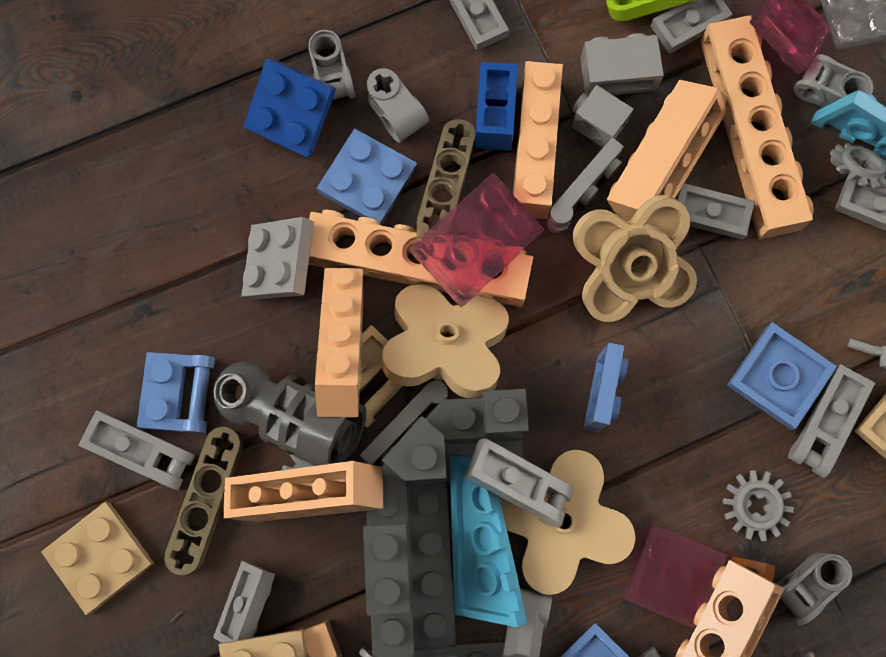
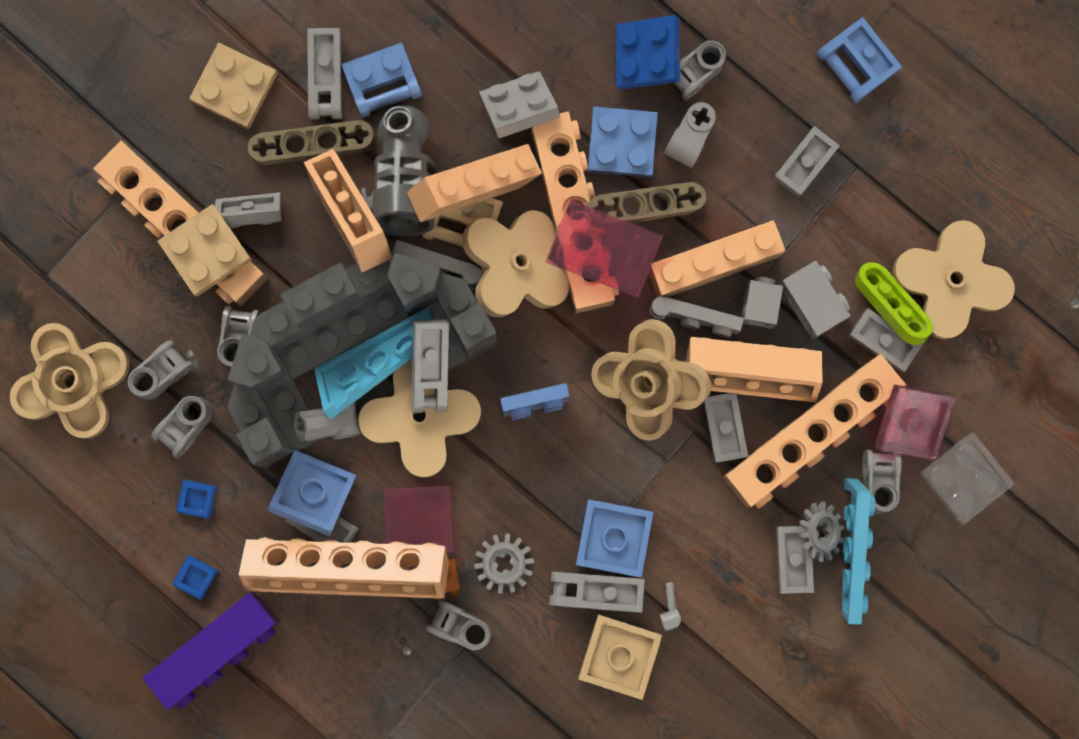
camera: 55 degrees right, 5 degrees up
(496, 106) = (726, 214): blue brick -> none

